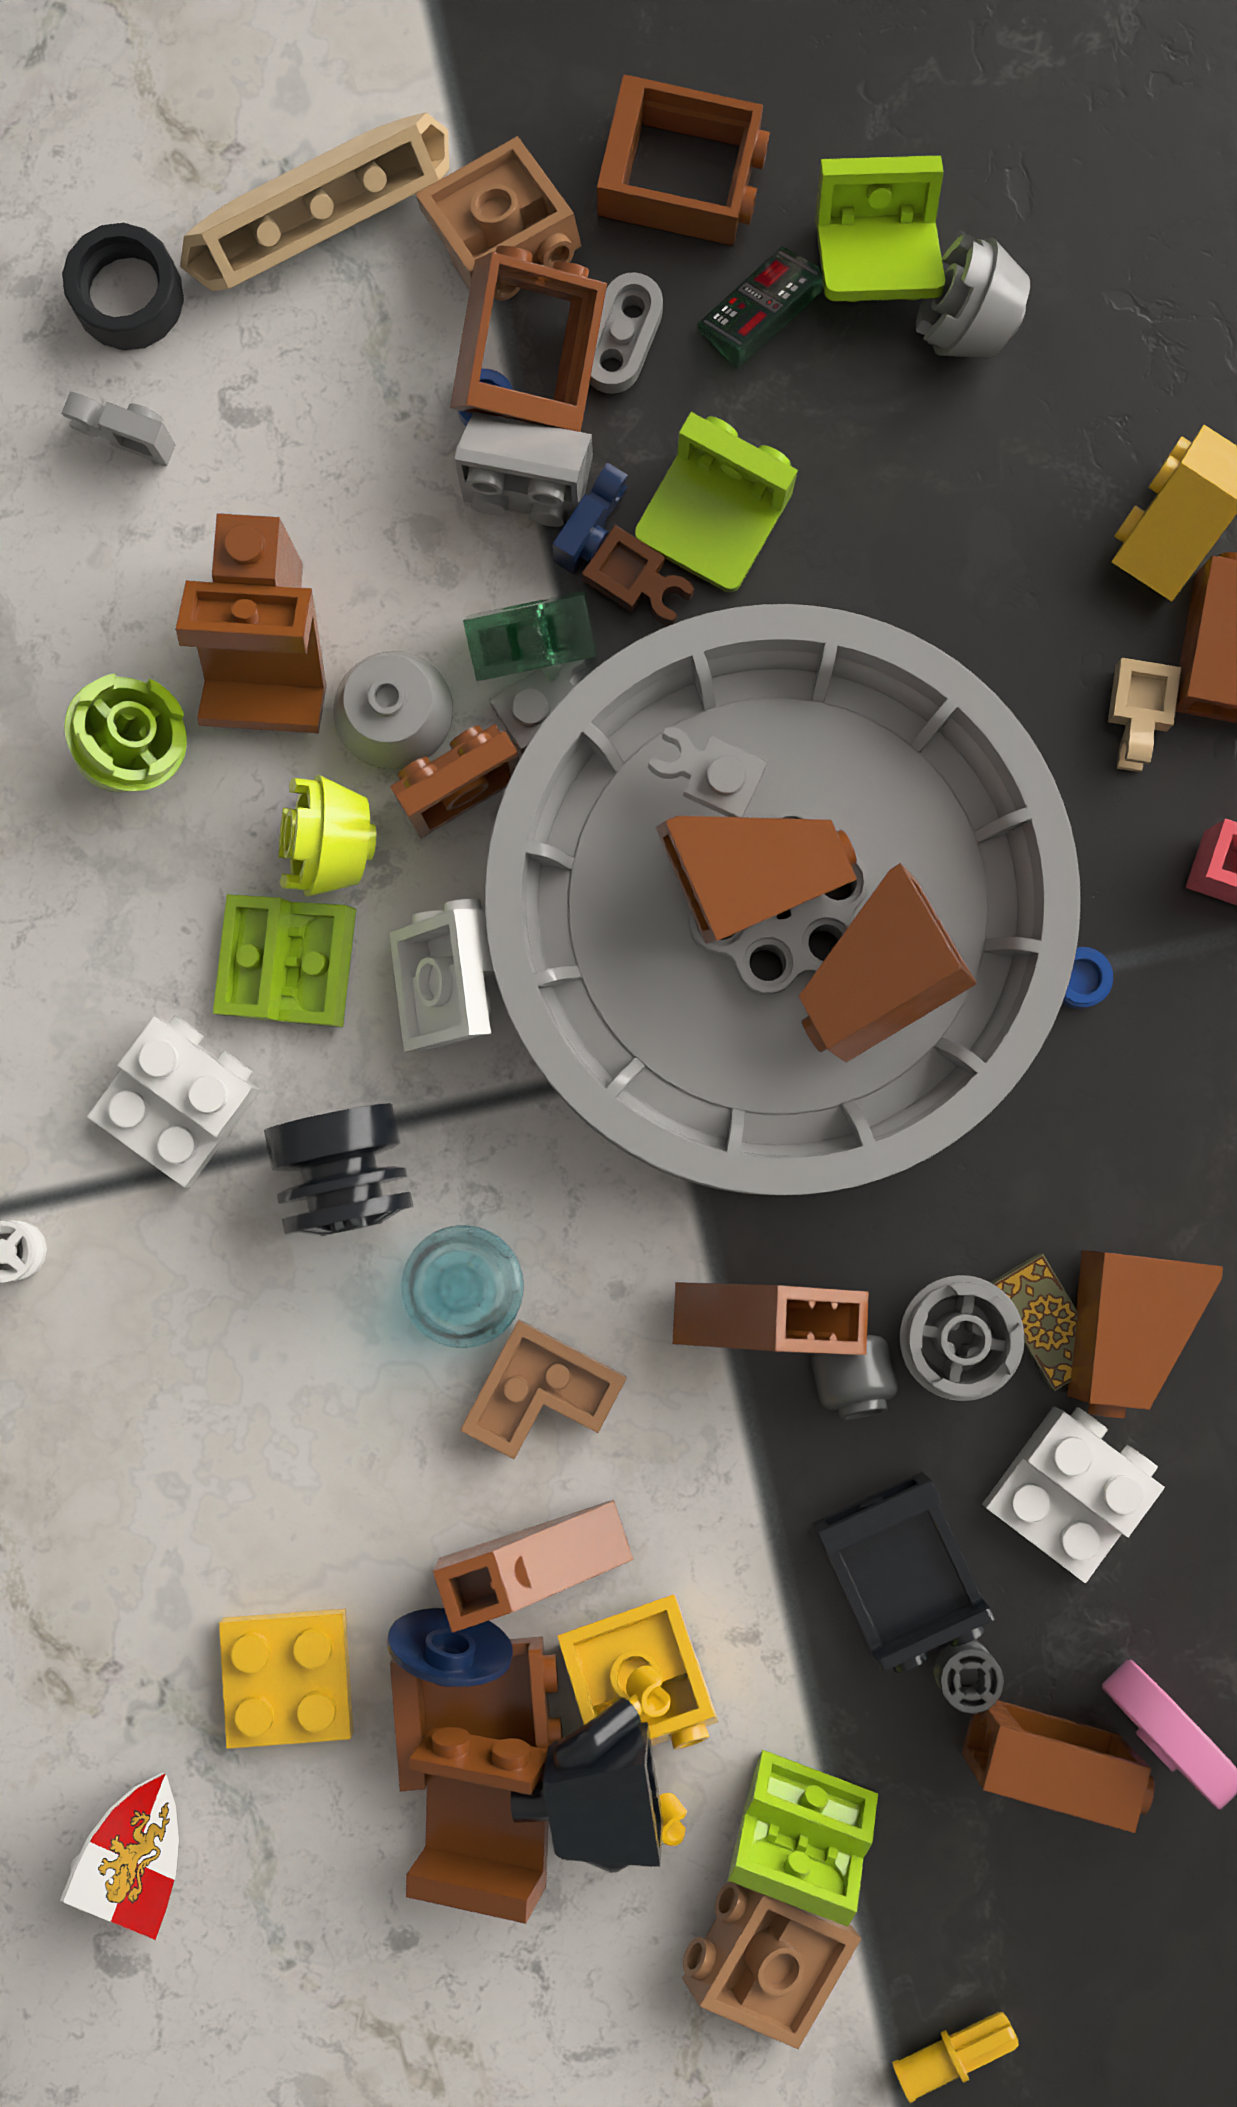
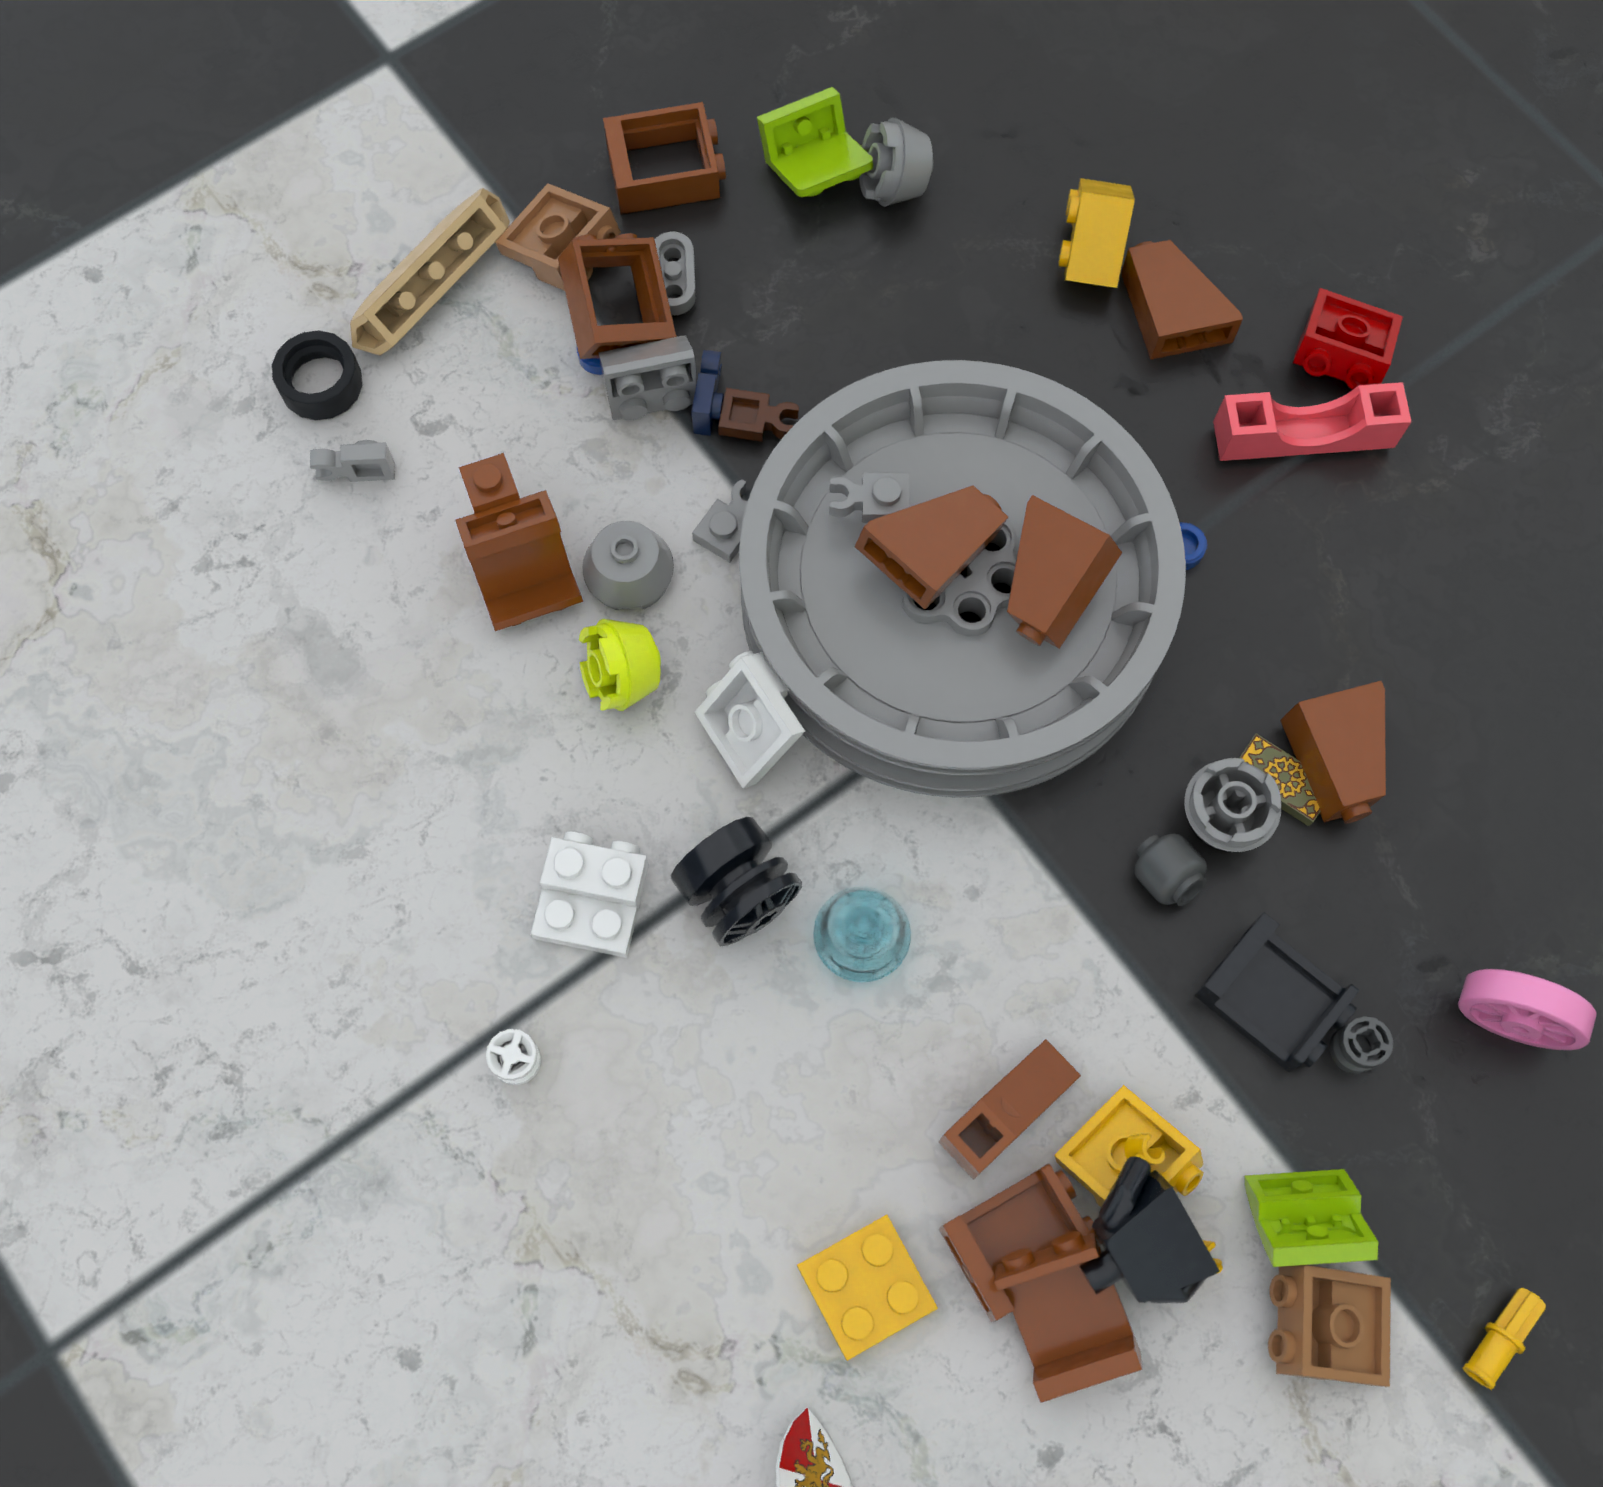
camera: 25 degrees left, 15 degrees down
(125, 733) = (447, 654): lime cone -> none
(284, 960) = (626, 766): lime slope -> none
(429, 1649) = (982, 1197): dark blue dish -> none
(457, 780) = (698, 588): dark orange plate -> none
(530, 635) = (703, 475): clear green brick -> none
(537, 1372) = (946, 970): medium nougat plate -> none
(717, 502) = (788, 346): lime bracket -> none
(762, 305) = (757, 223): slope -> none
(771, 1318) = (1092, 848): dark orange slope -> none
(1058, 1765) = (1458, 1070): dark orange window -> none
(1074, 1491) = (1364, 884): white plate -> none
(1143, 702) = (1132, 357): tan plate -> none

